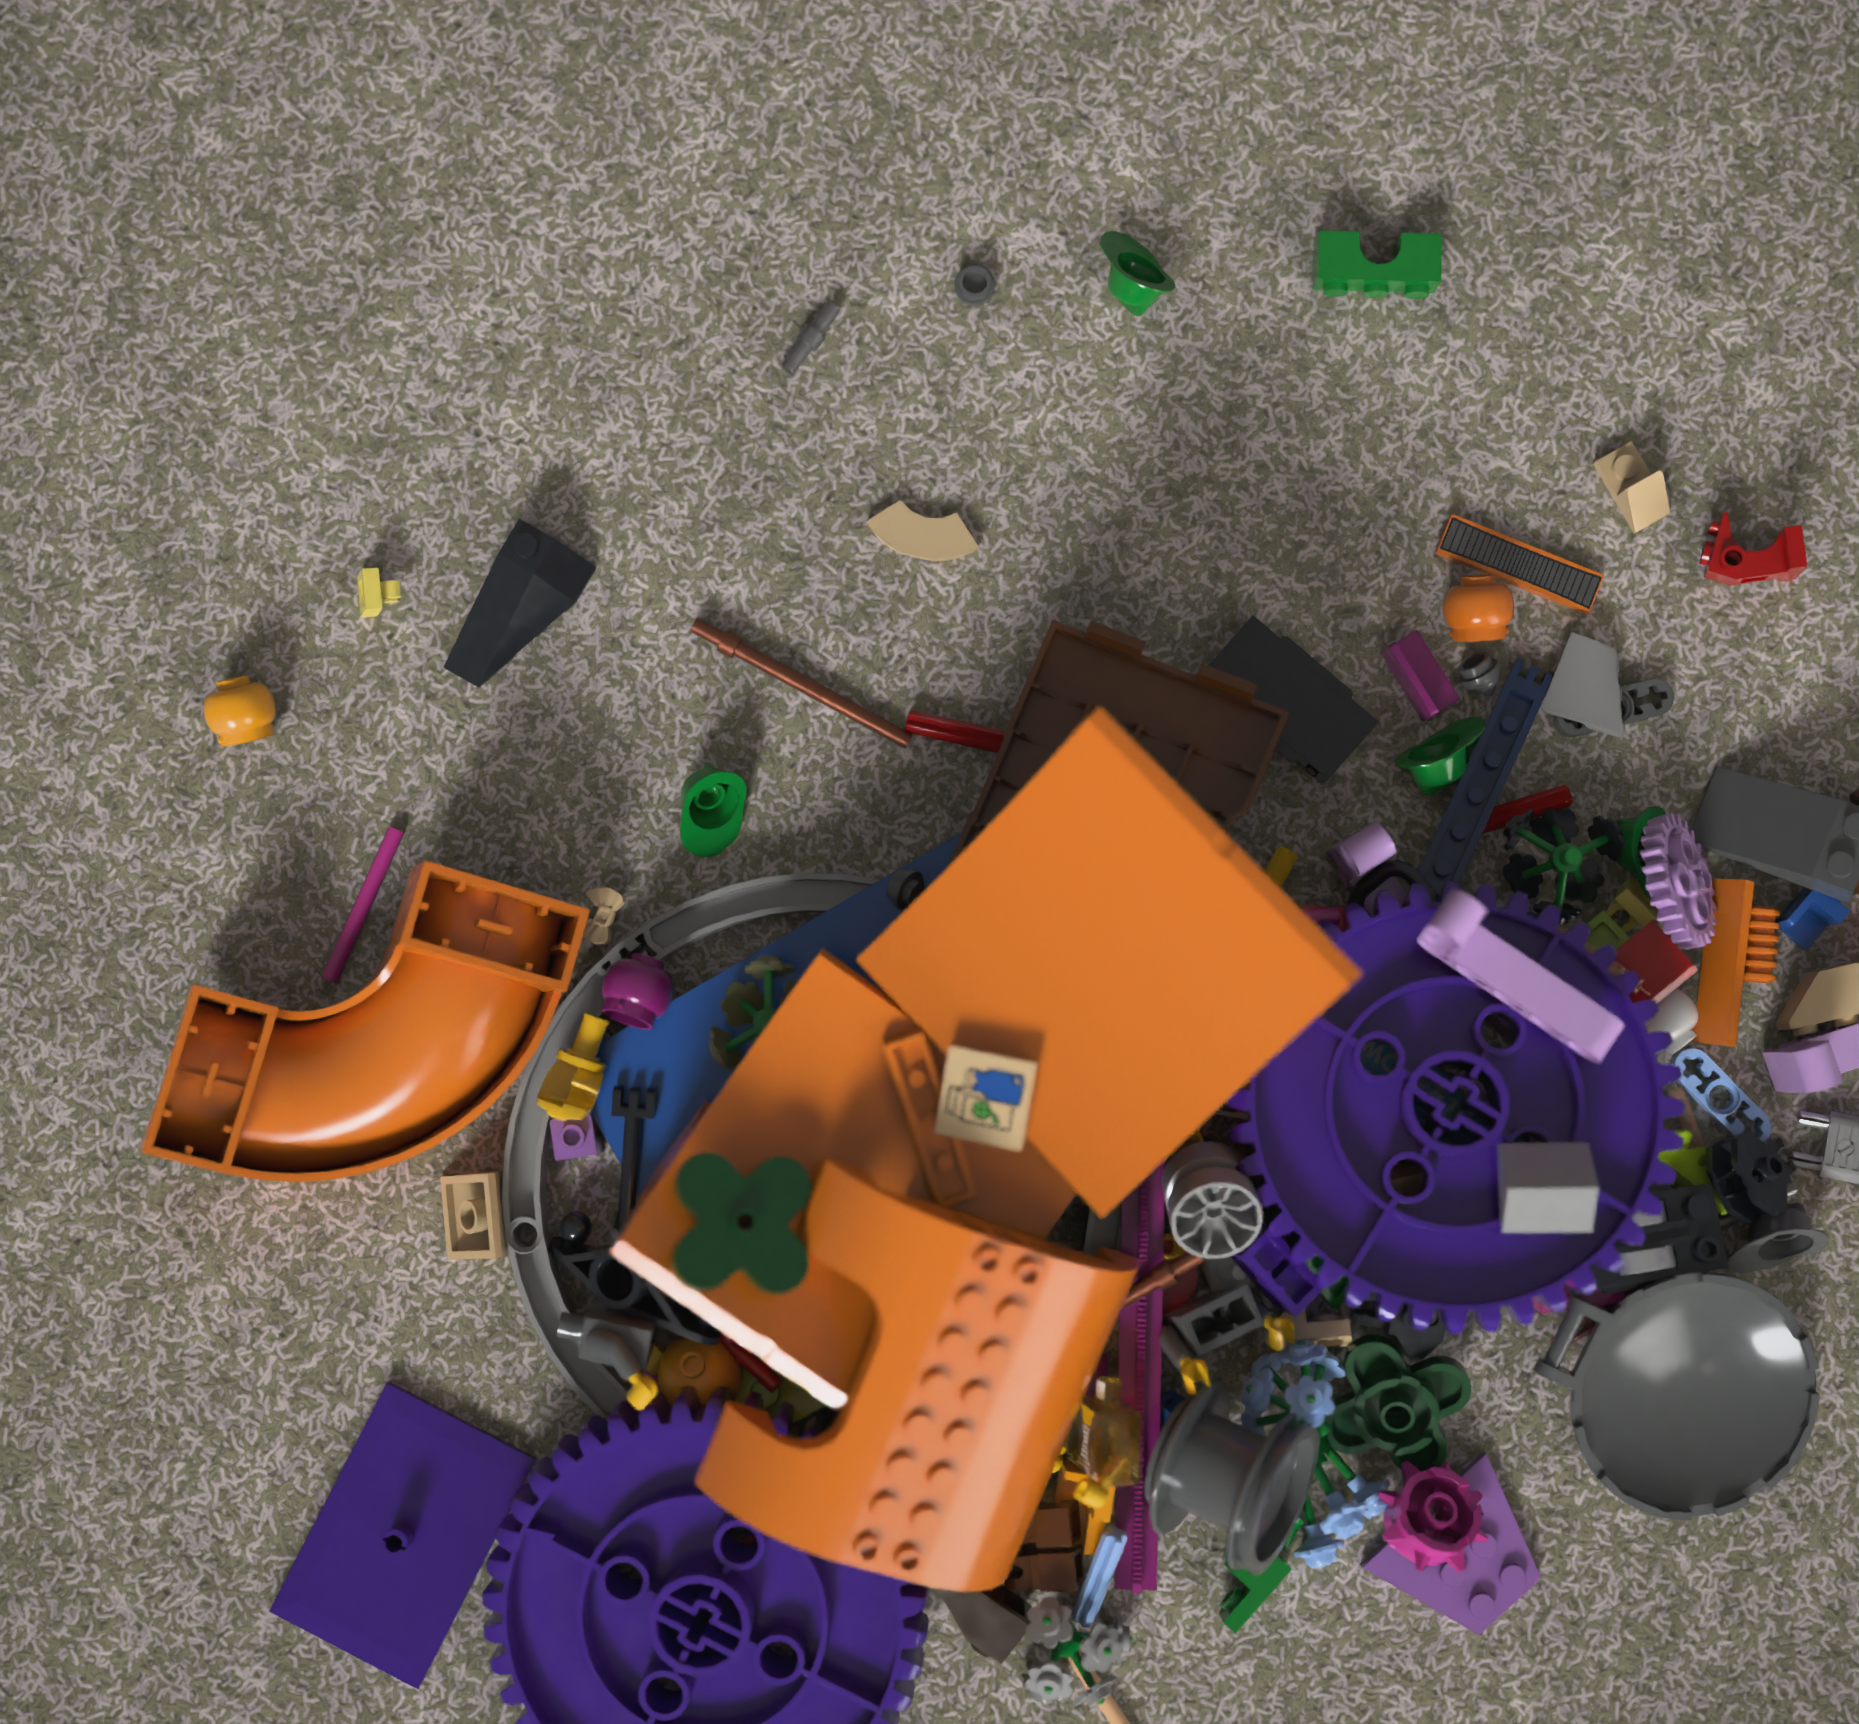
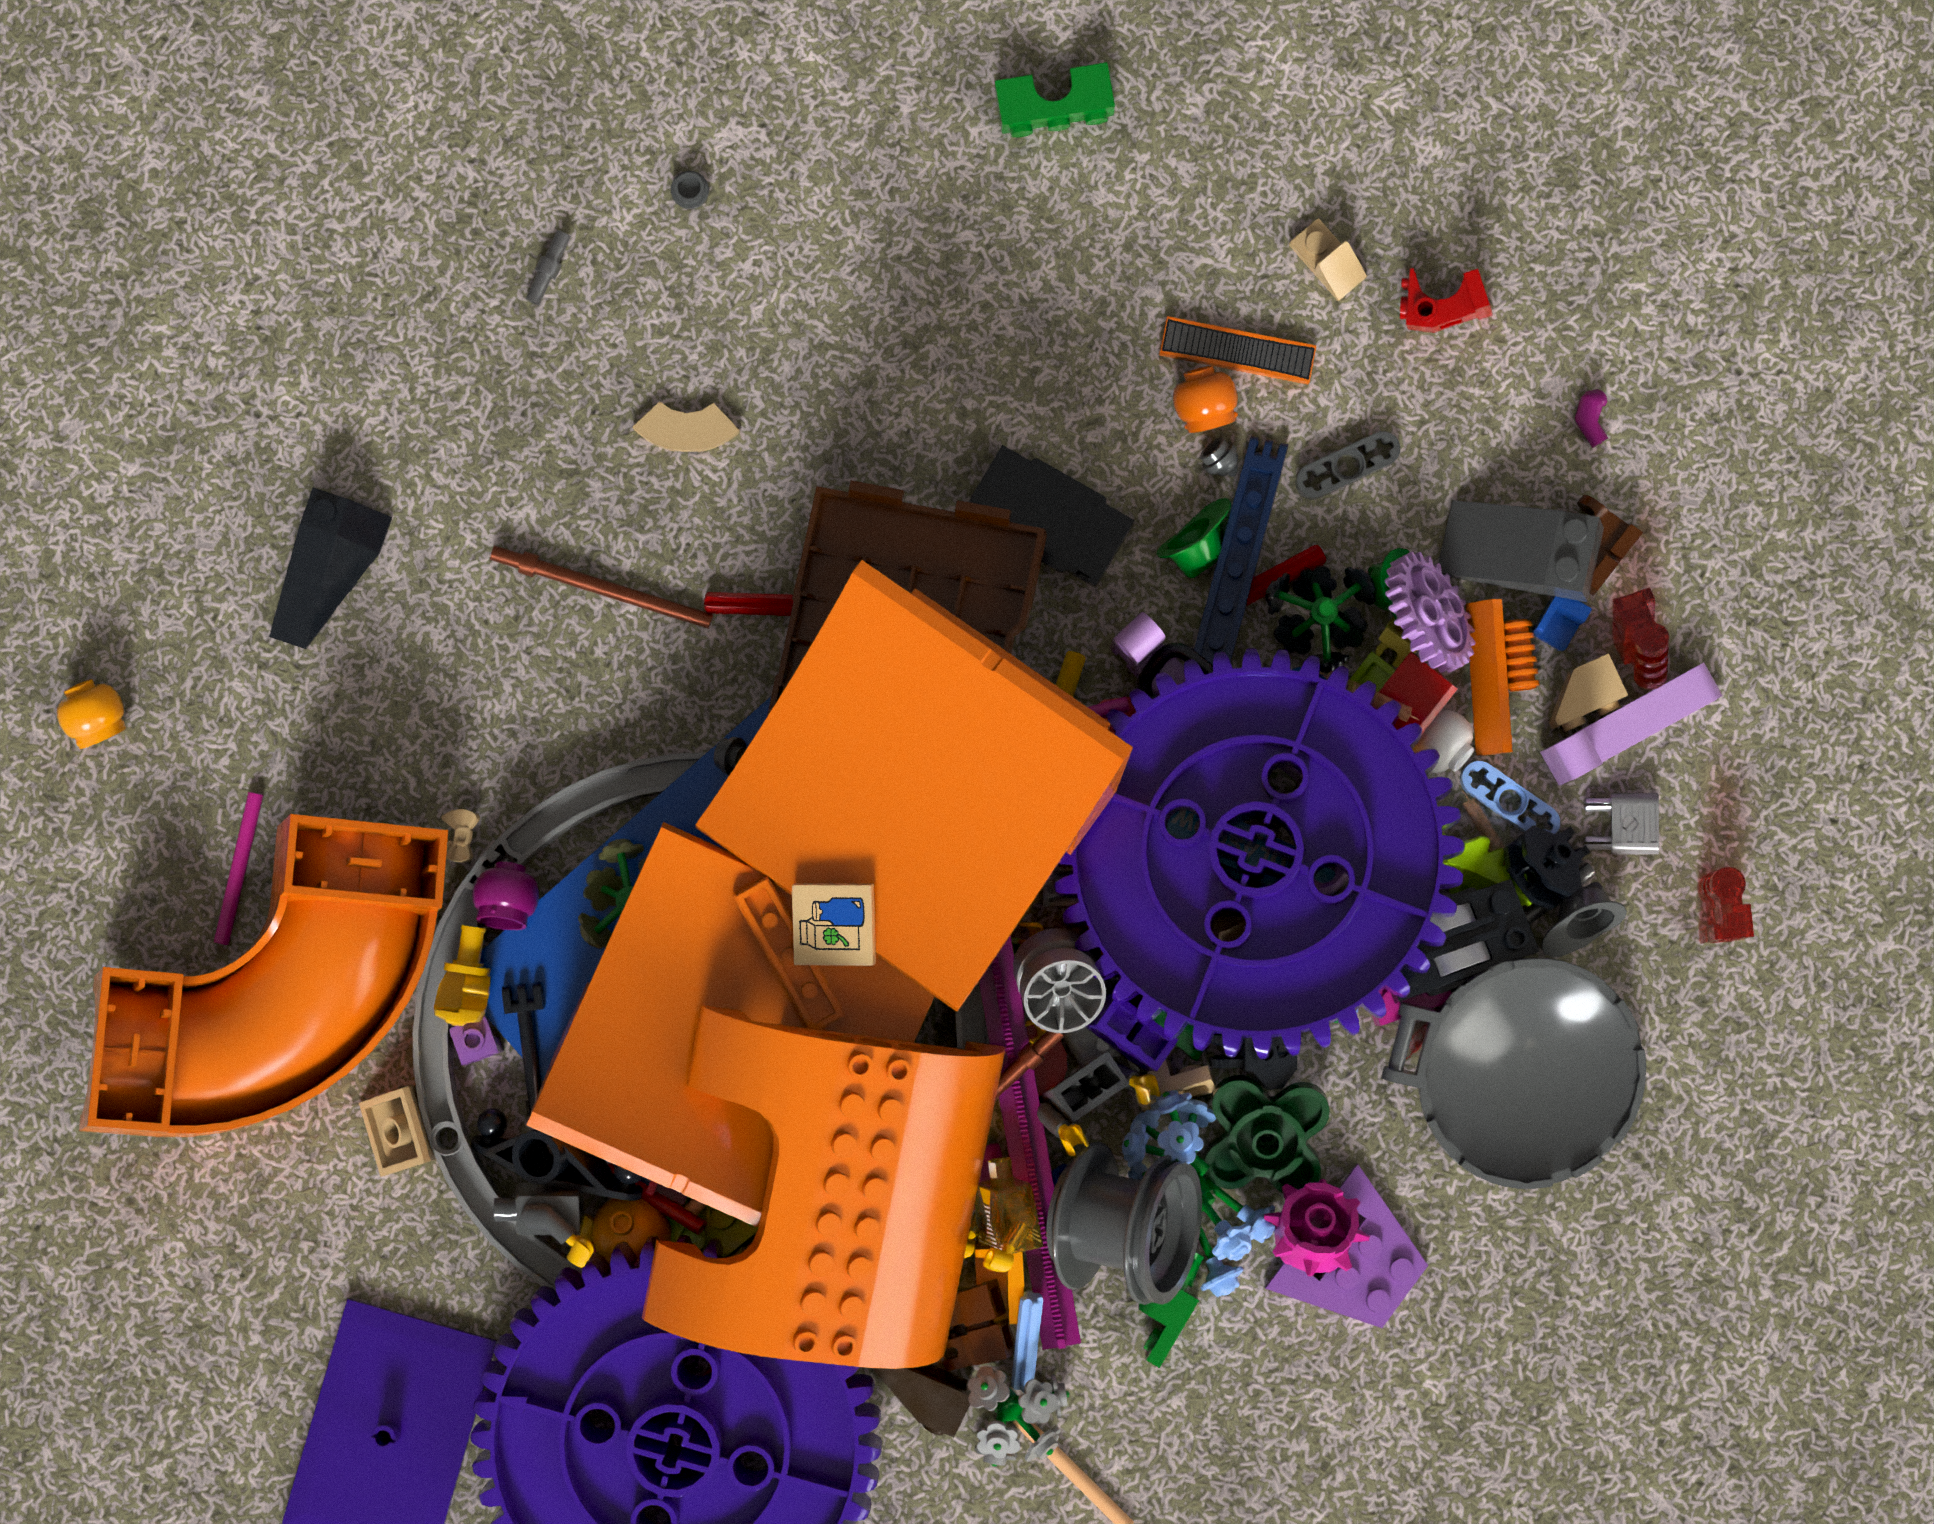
camera: 15 degrees left, 0 degrees up
(374, 593) = (192, 581): light yellow tile -> none
(711, 810) = (541, 719): green piece -> none
(715, 1244) = (619, 1100): dark green plant -> none
(1134, 273) = (834, 150): green piece -> none
(1419, 675) = (1166, 470): magenta panel -> none
(1515, 979) = (1229, 703): lavender beam -> none
(1546, 1187) = (1347, 908): light grey slope -> none
(1587, 686) = (1318, 450): light grey slope -> none

